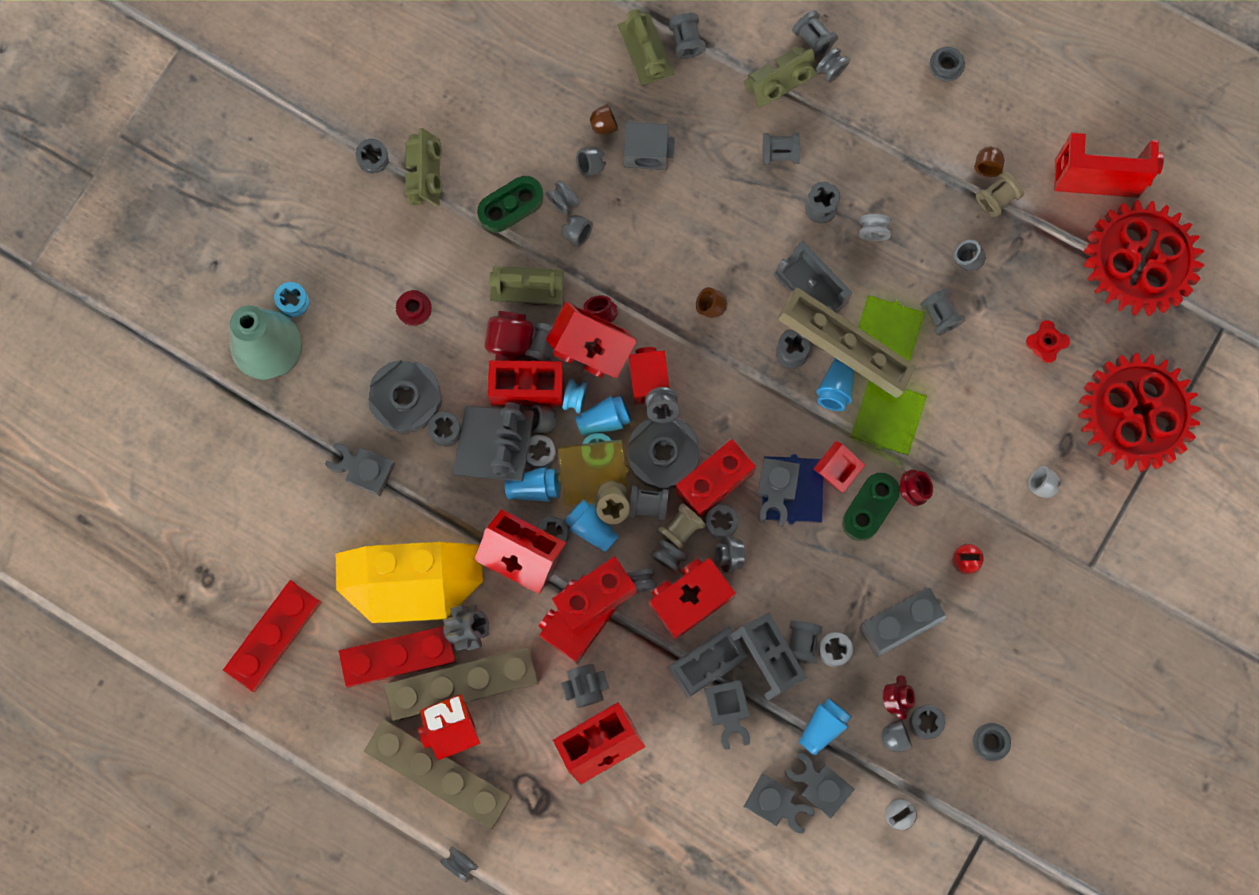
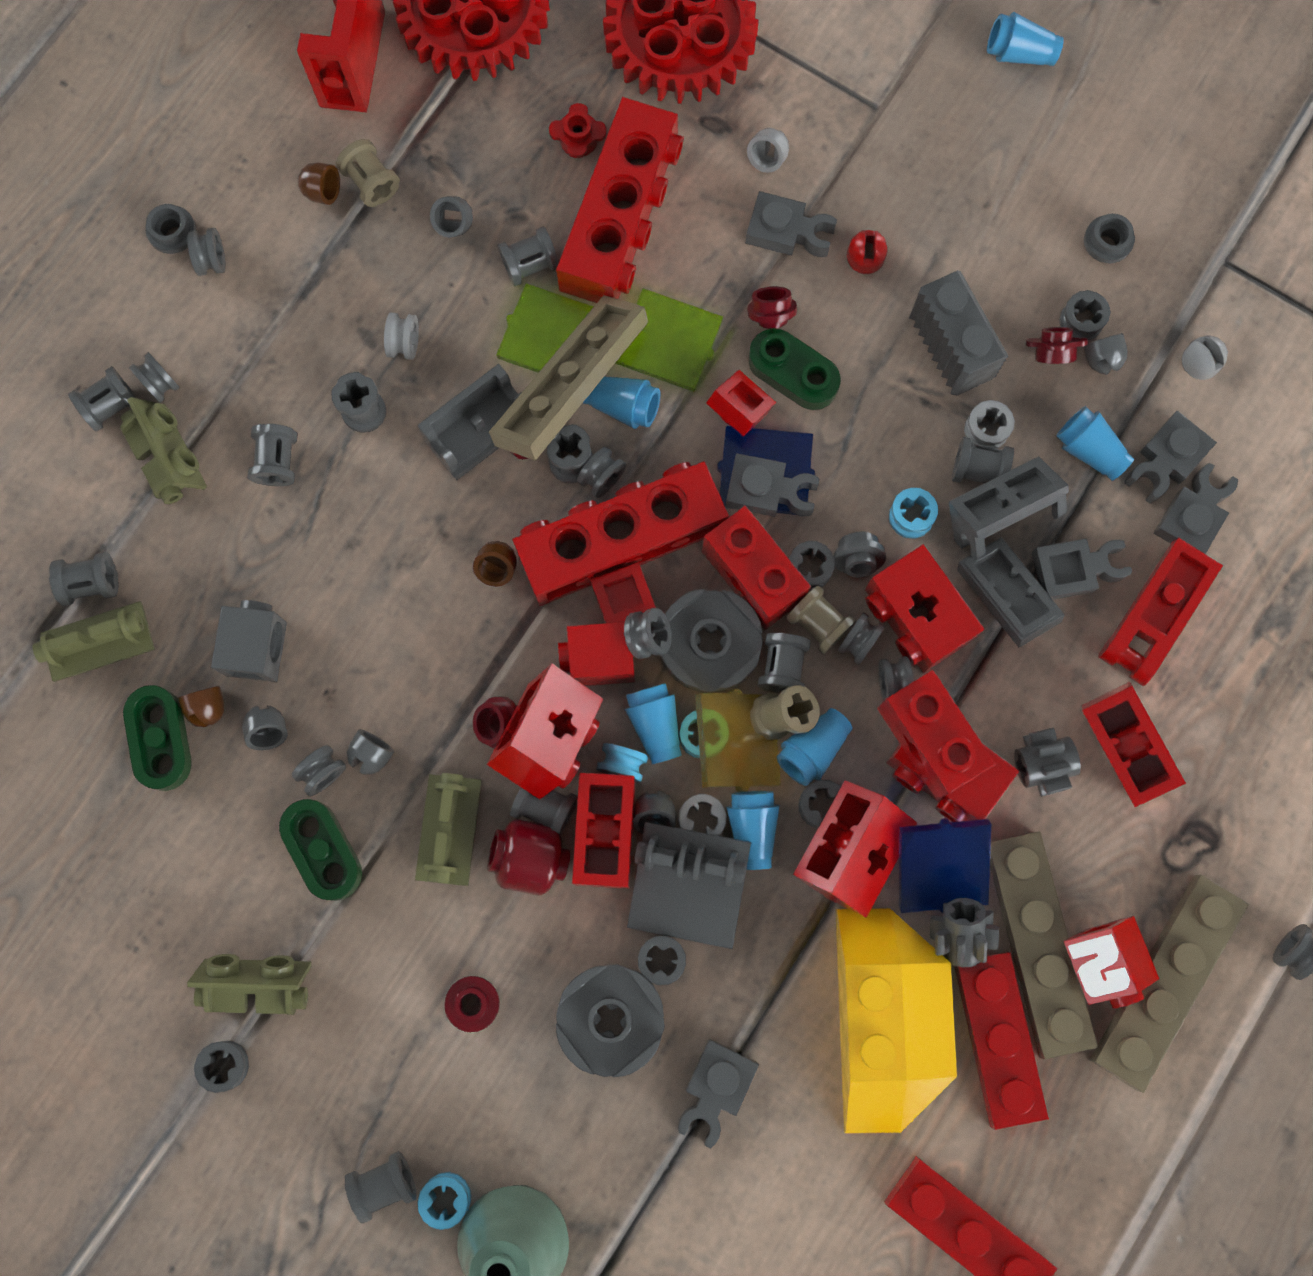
camera: 90 degrees left, 0 degrees up
(299, 258) = (380, 1187): none -> dark grey bush
(511, 613) = (943, 864): none -> clear blue piece
(579, 91) = (153, 741): none -> dark green plate
(692, 391) = (622, 593): none -> red plate
(700, 773) = (1161, 610): none -> red plate
(719, 332) = (651, 537): none -> red brick
(777, 593) = (918, 526): none -> medium azure bush
(781, 371) = (601, 472): none -> dark grey bush
(929, 89) = (206, 251): none -> dark grey bush
(986, 494) = (781, 223): none -> dark grey plate
(1044, 377) = (635, 133): none -> red brick
(1152, 675) = (1023, 41): none -> dark azure cone

